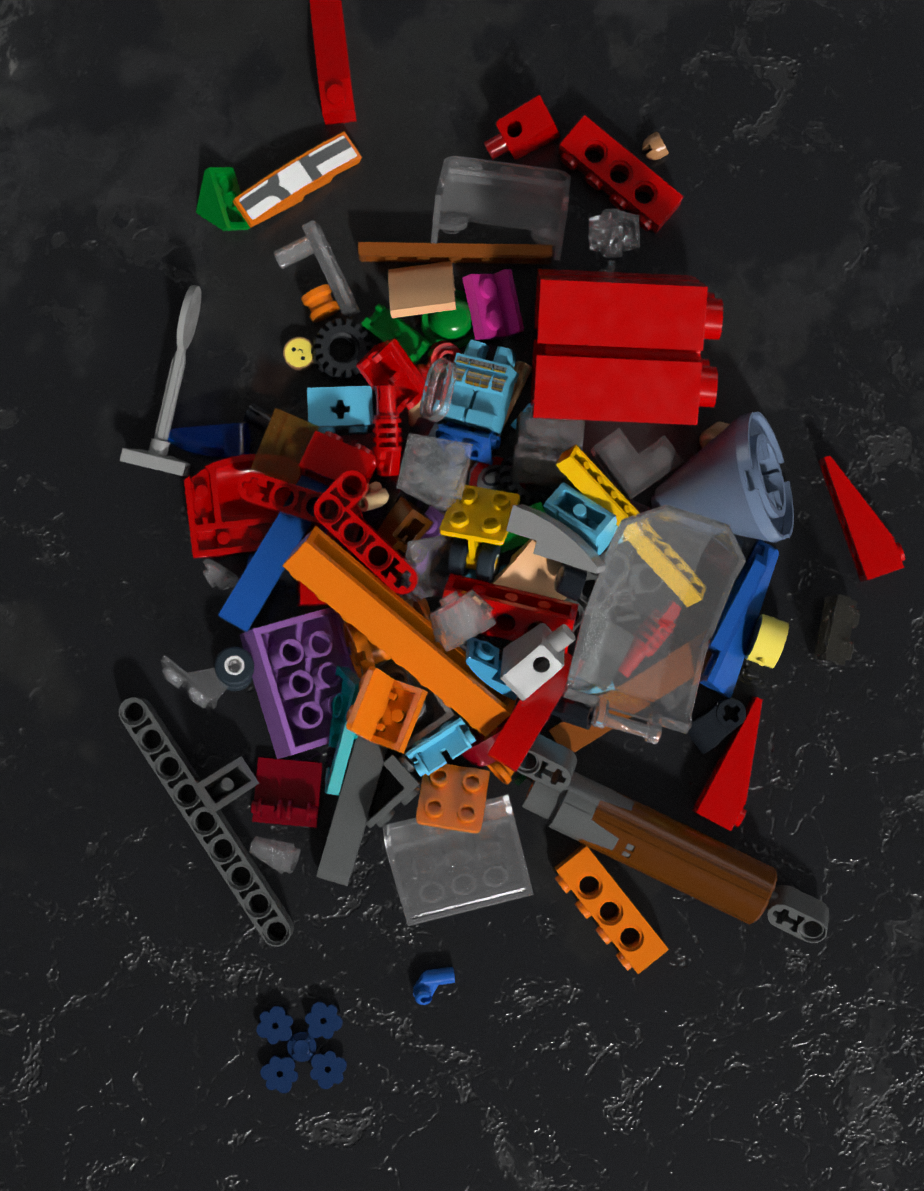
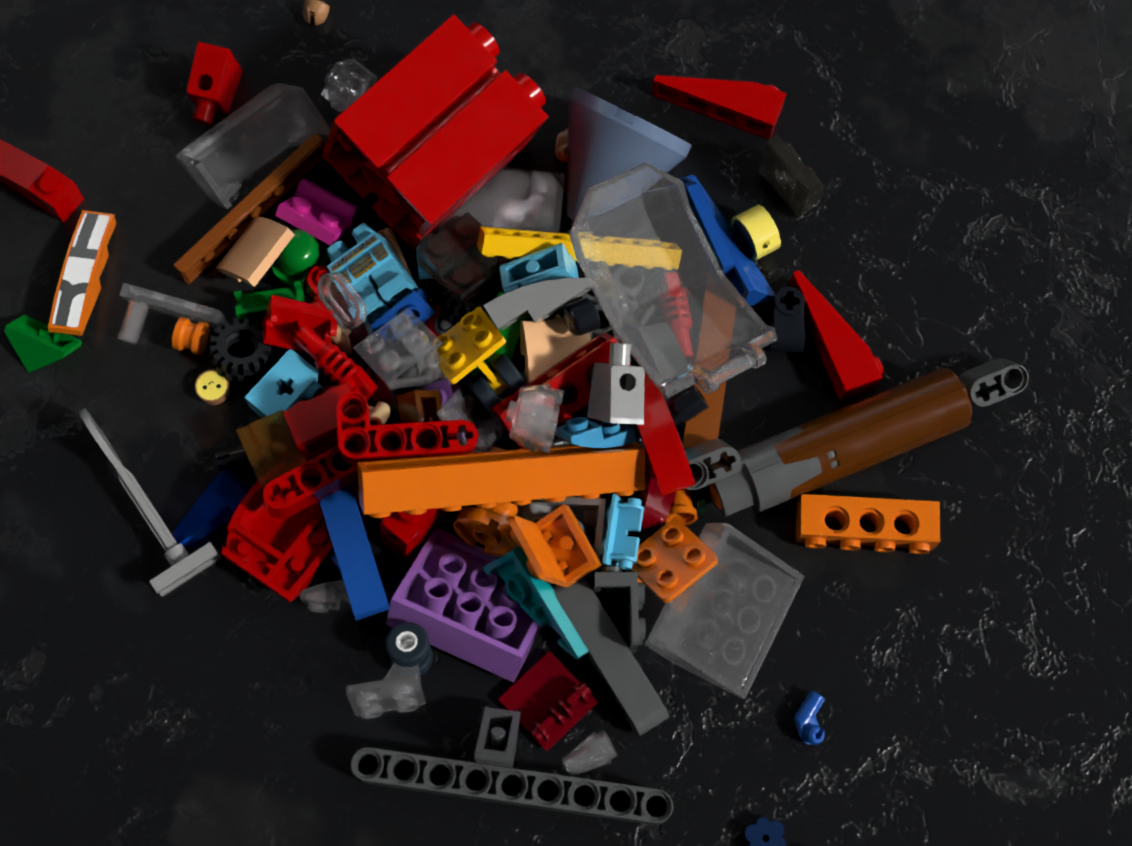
camera: 55 degrees left, 15 degrees down
(589, 137) = (299, 40): red brick -> none

